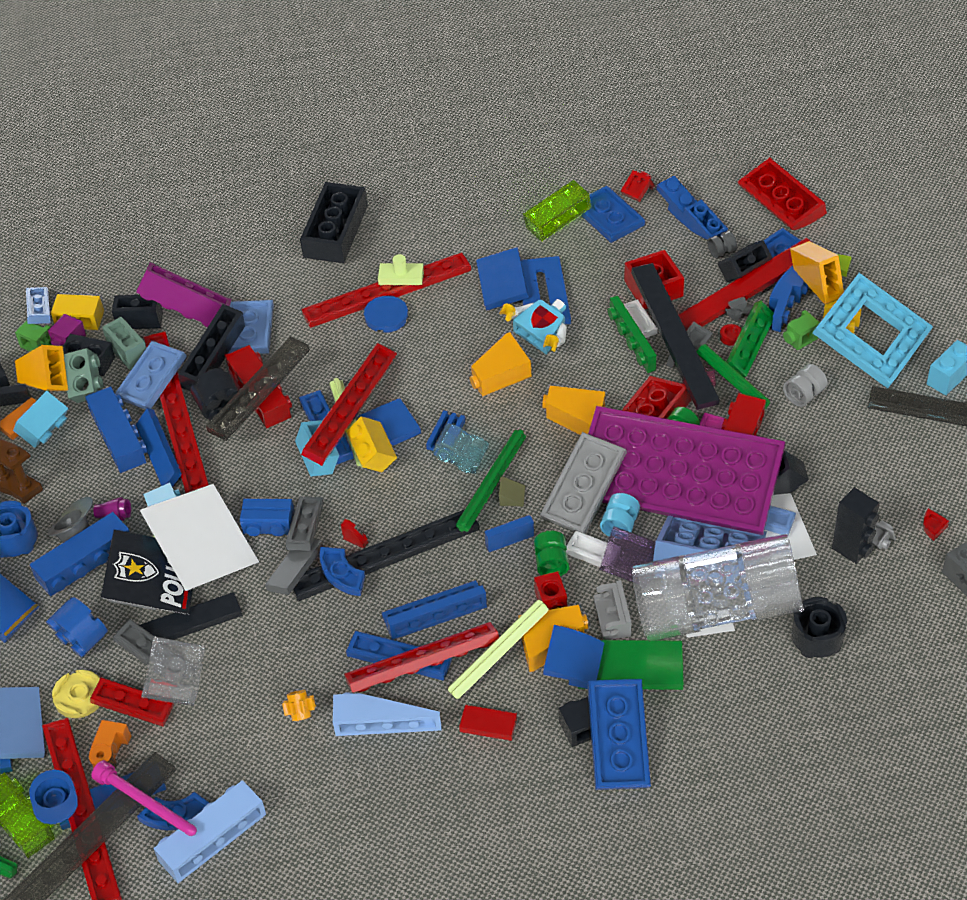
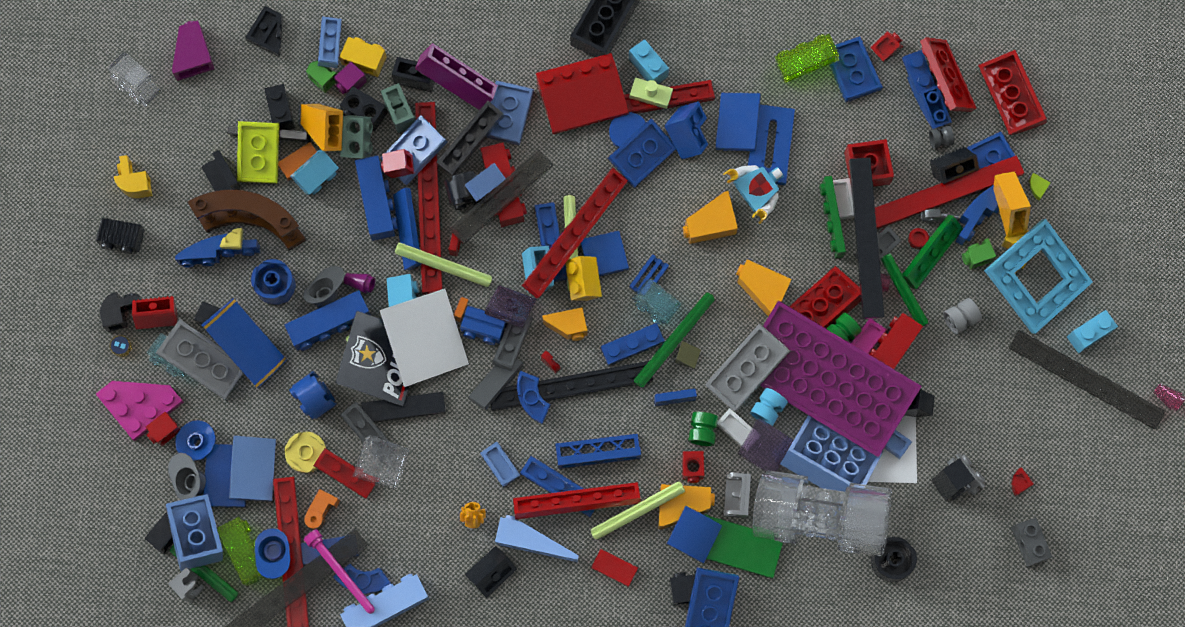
camera: 10 degrees right, 25 degrees up
(134, 386) = (397, 163): none -> brick
(206, 467) = (443, 264): none -> yellowish green axle
(216, 450) = (454, 246): none -> red tile
(235, 375) = (485, 182): none -> medium blue tile
(236, 505) = (461, 307): none -> orange tile
(294, 489) = (510, 306): none -> clear purple tile
(320, 650) = (500, 464): none -> medium blue tile
(325, 288) = (582, 93): none -> red slope
(337, 762) = (491, 571): none -> black panel
(363, 493) = (567, 323): none -> light orange slope
(385, 245) = (648, 62): none -> medium azure brick
(406, 325) = (642, 153): none -> blue tile
(444, 498) = (632, 344): none -> blue plate
(449, 296) = (686, 131): none -> blue panel
(709, 192) = (947, 74): none -> red plate

